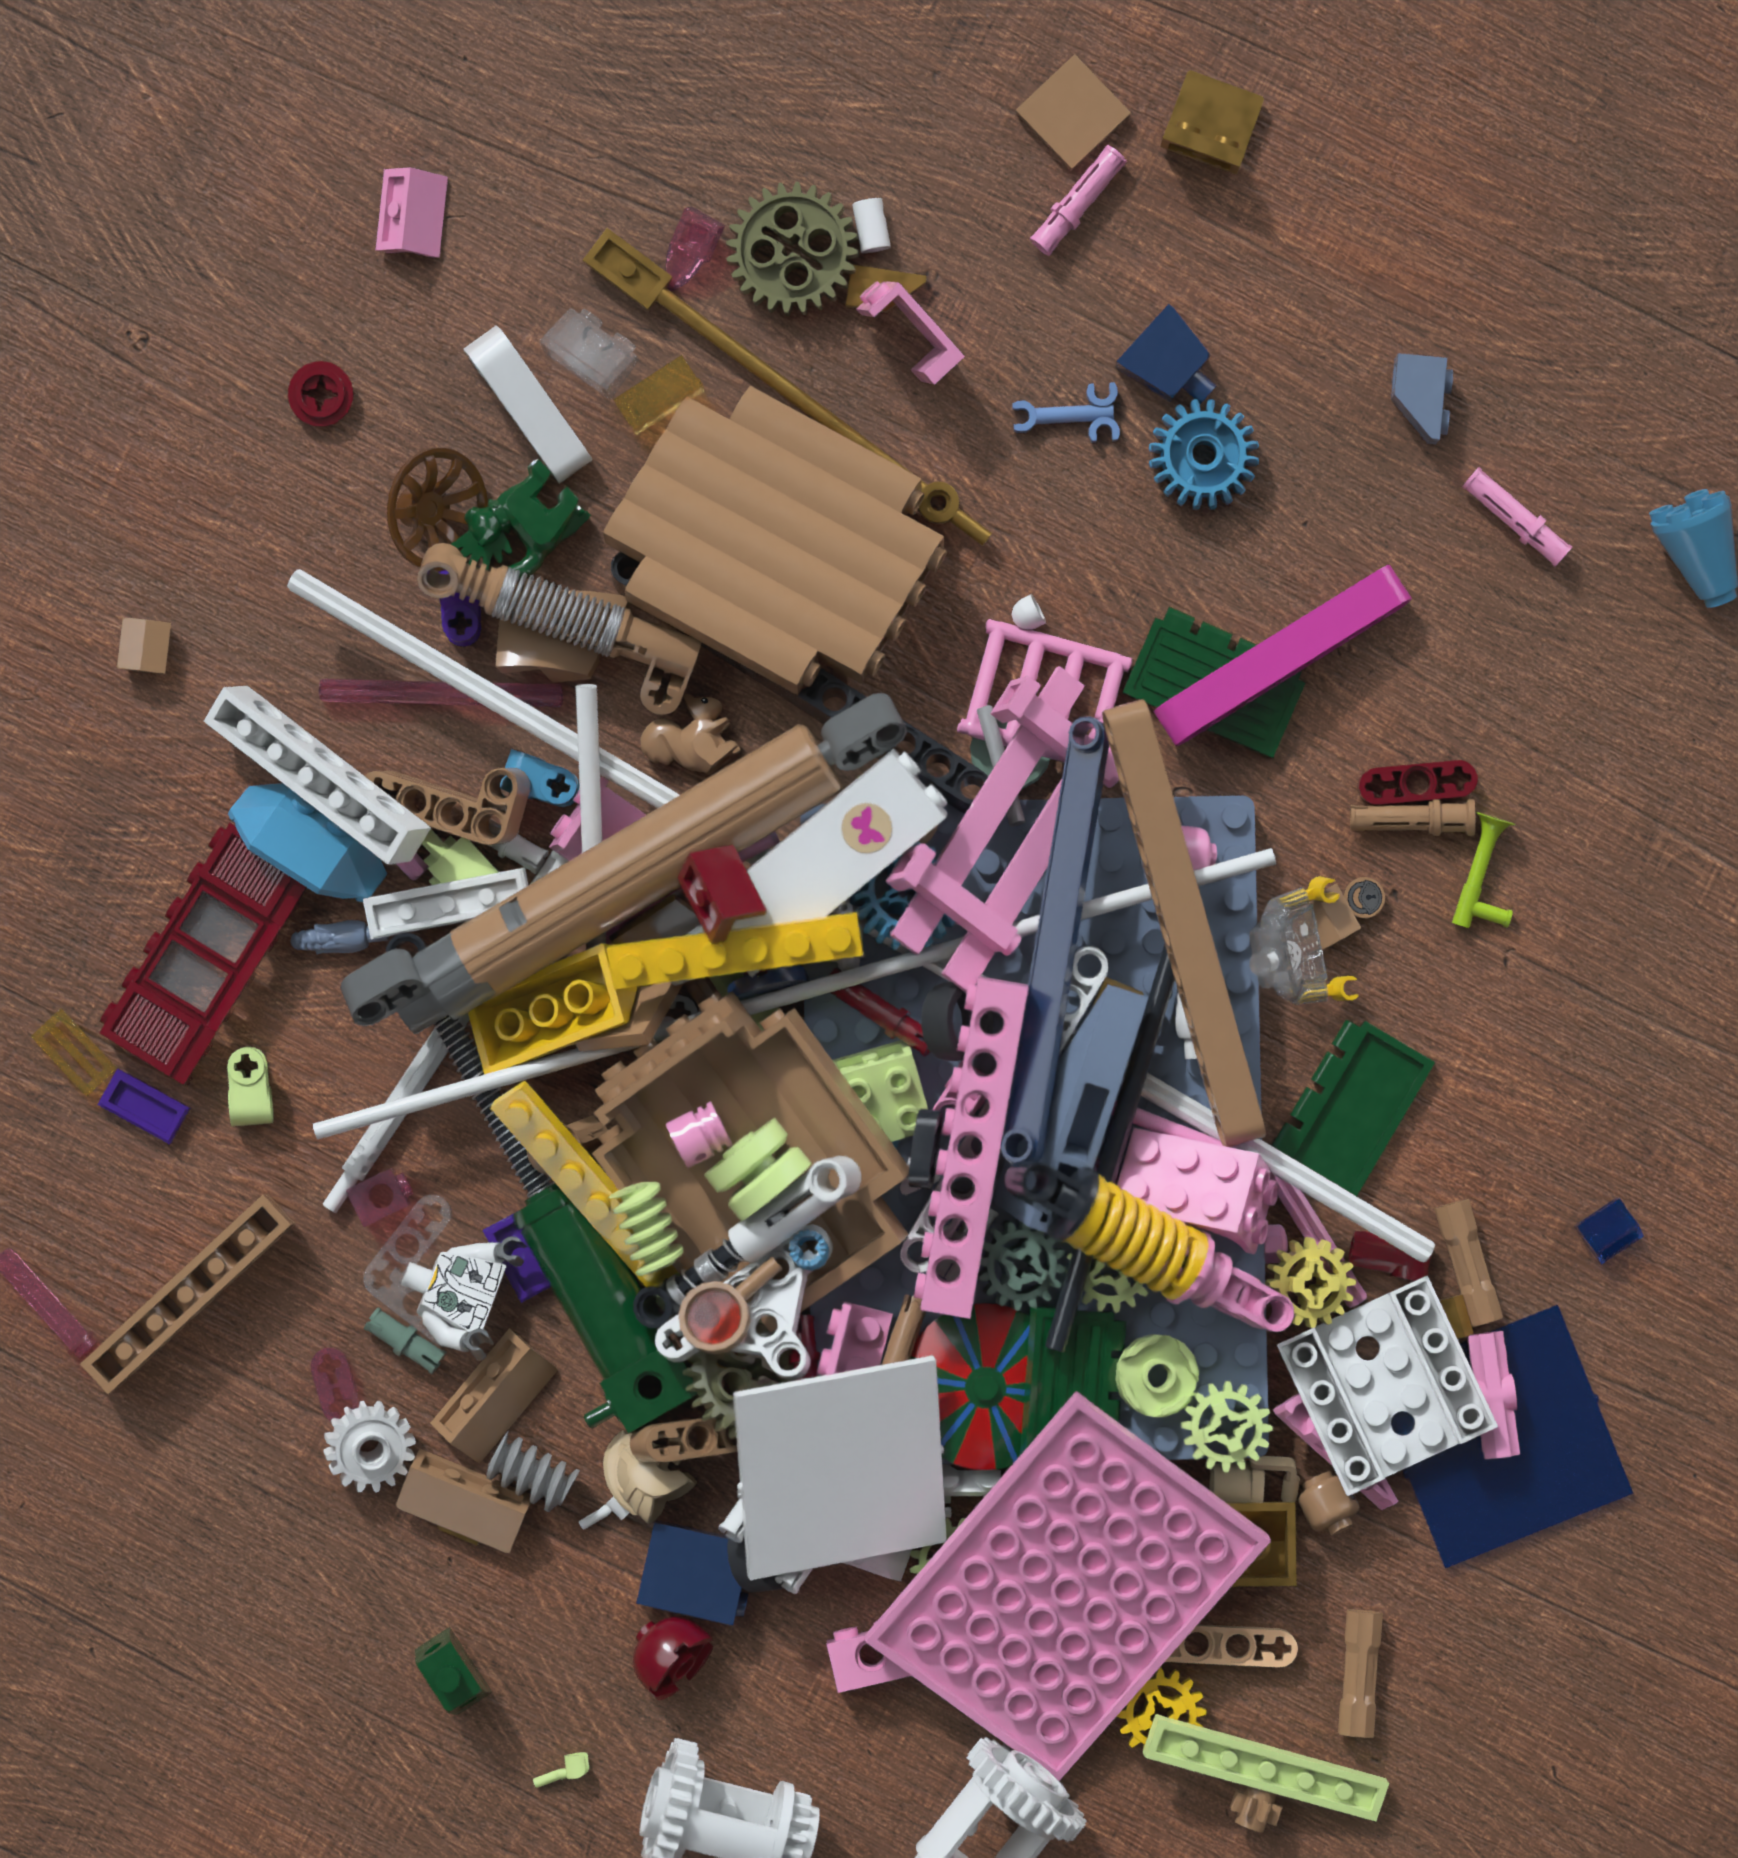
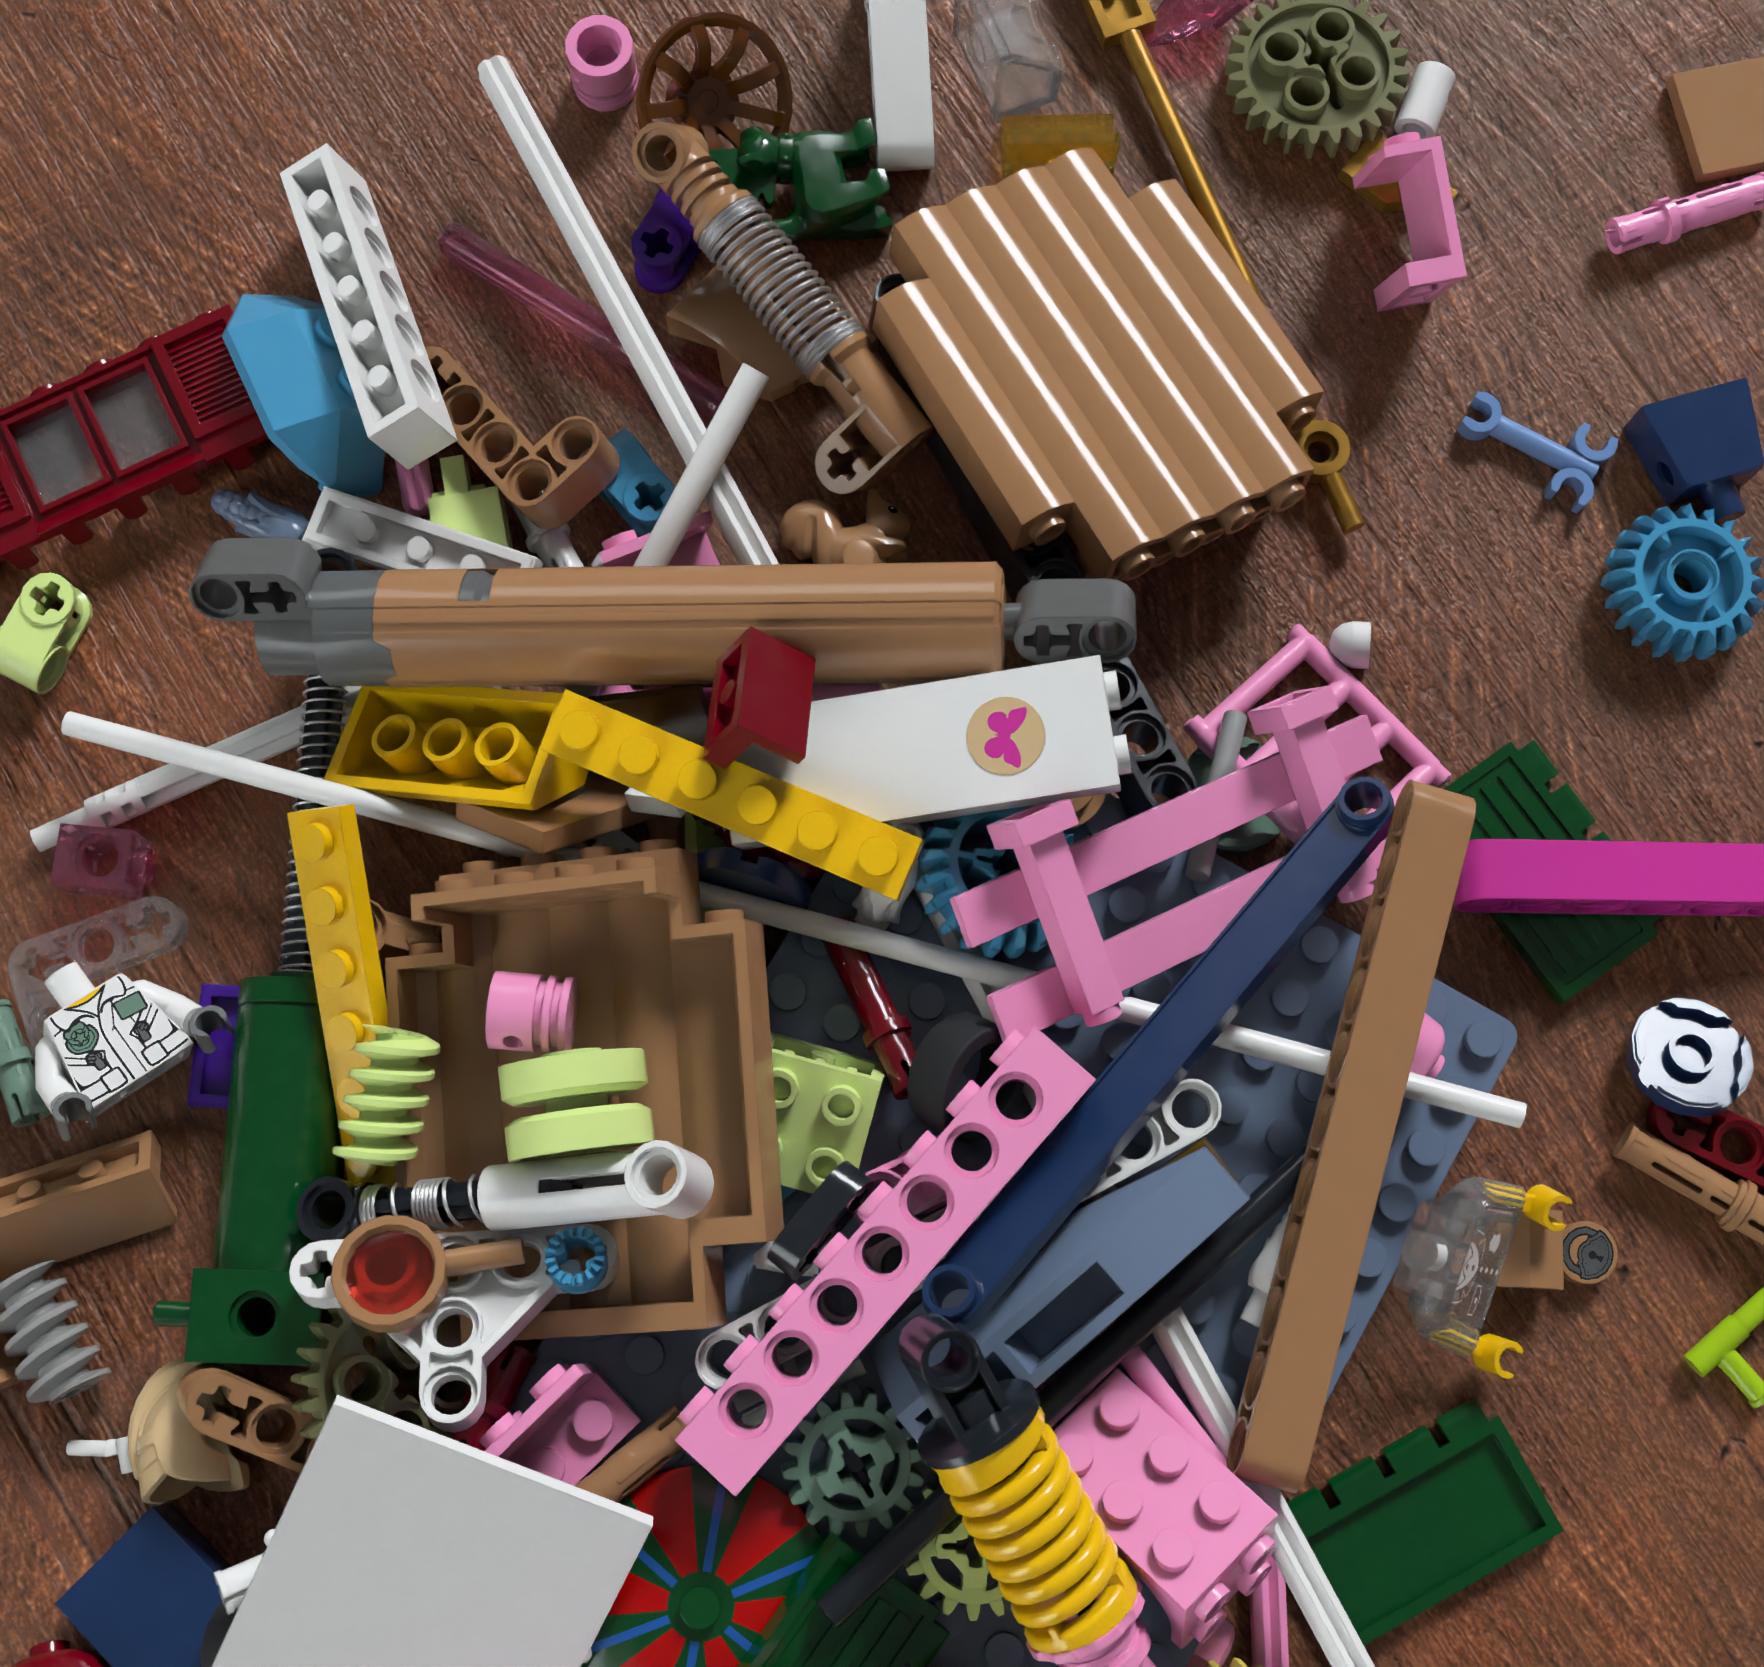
camera: 30 degrees right, 10 degrees down
(143, 646) = (277, 67): medium nougat piece -> none
(346, 520) = (602, 62): none -> bright pink piece
(1361, 748) = (1688, 1057): none -> tile

